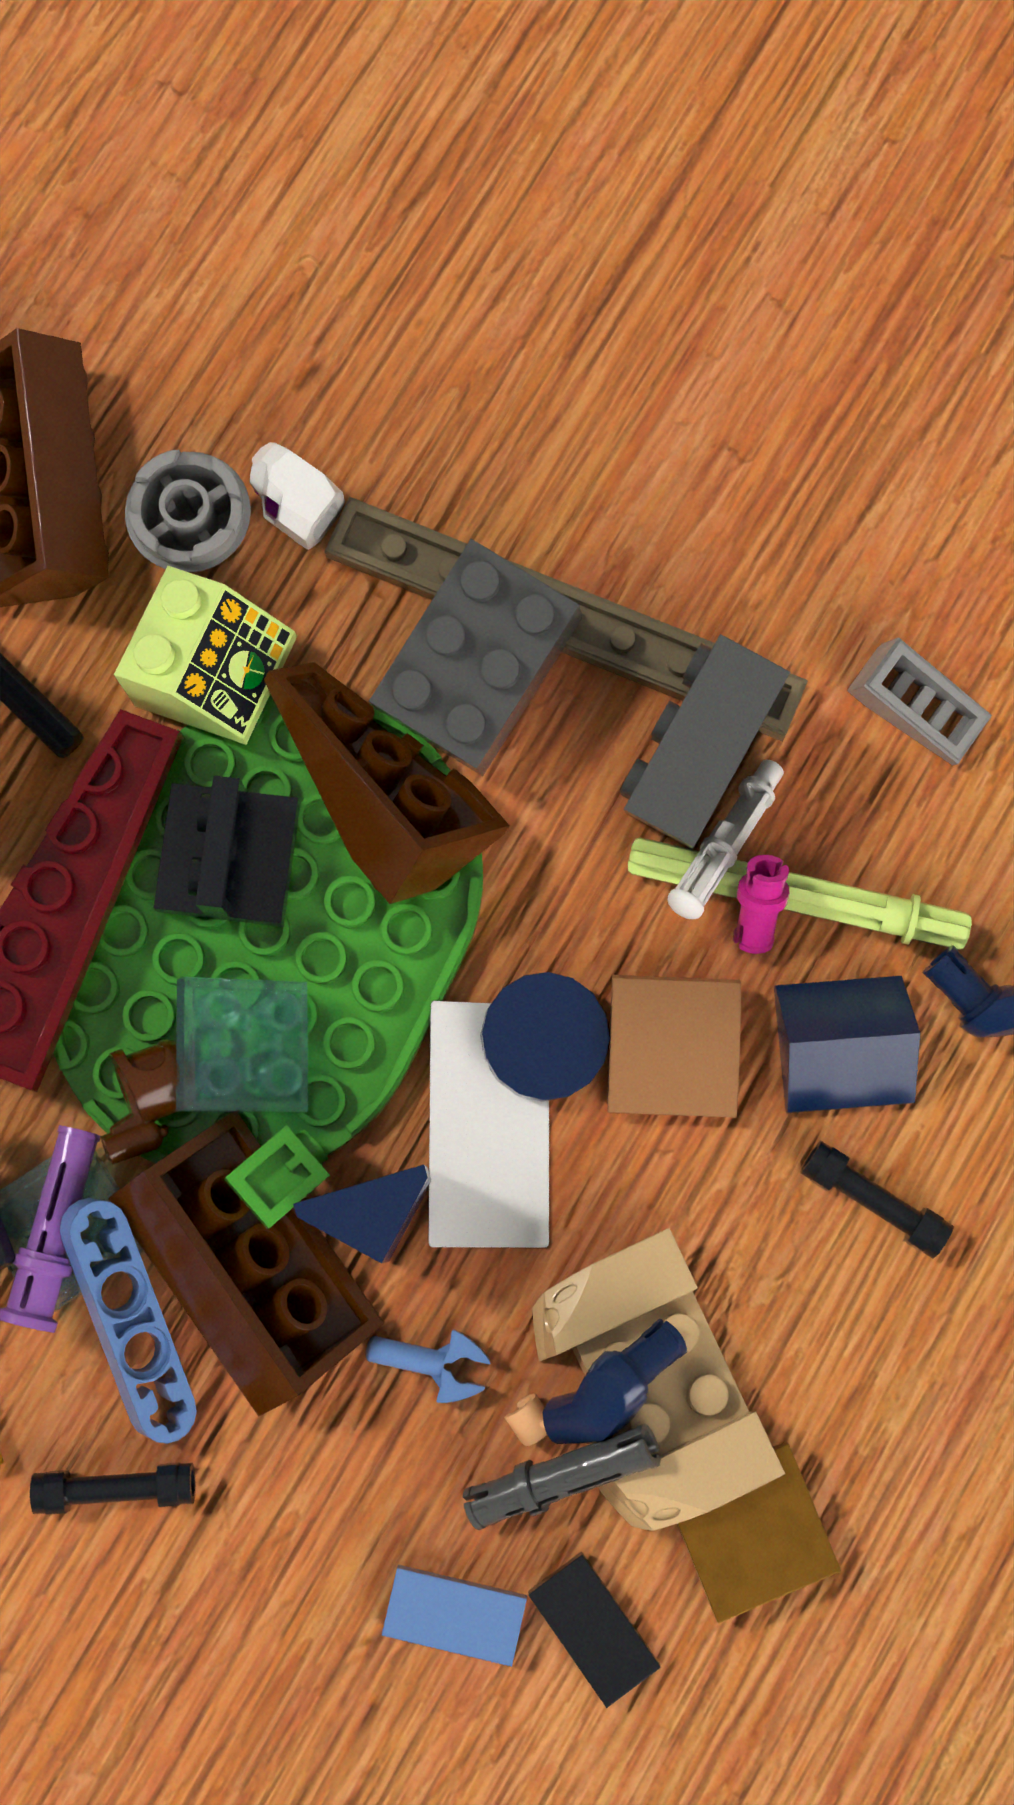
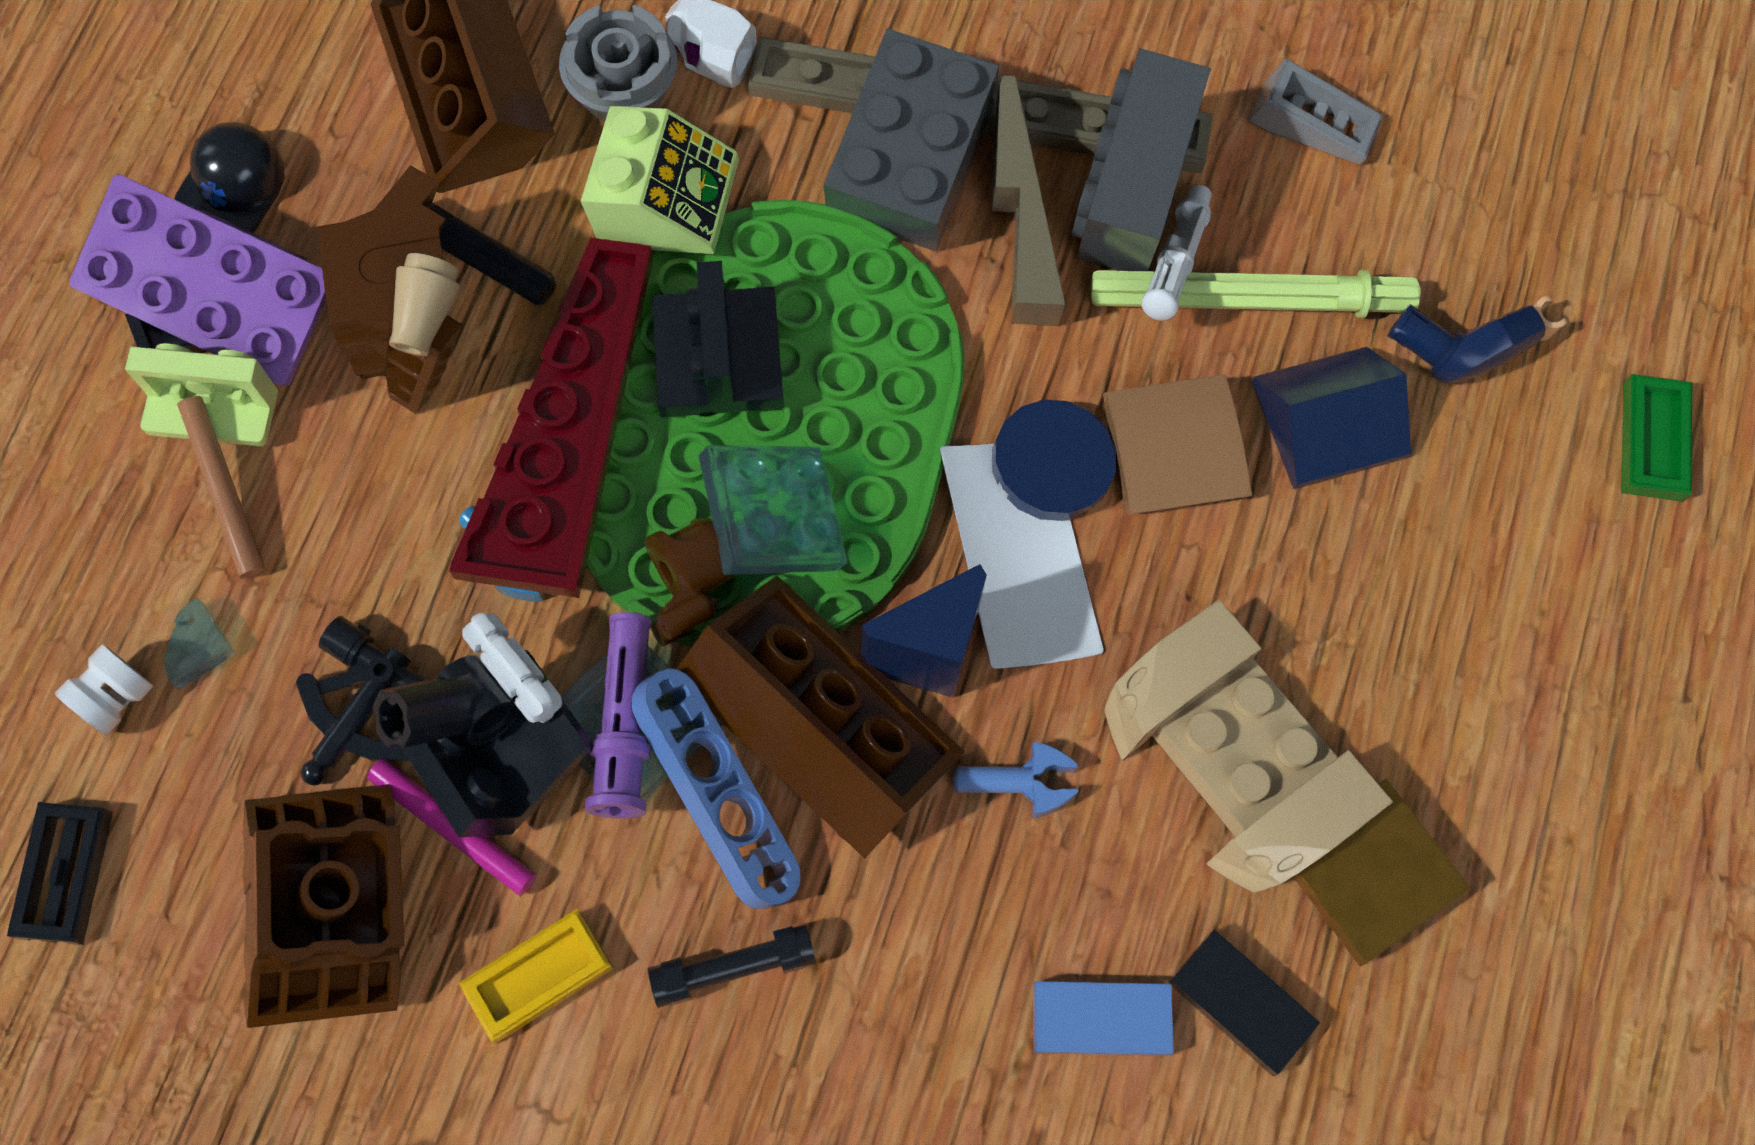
camera: 15 degrees left, 10 degrees down
(279, 1174) = (833, 616): bright green bracket -> none
(390, 805) = (866, 284): reddish brown wedge -> none
(538, 1485) = (1189, 843): dark grey pin -> none
(571, 729) = (1036, 280): none -> dark tan slope
(607, 1395) = (1204, 761): dark blue arm -> none
(762, 897) = (1225, 291): dark pink pin -> none
(923, 1229) = (1453, 563): black bar -> none

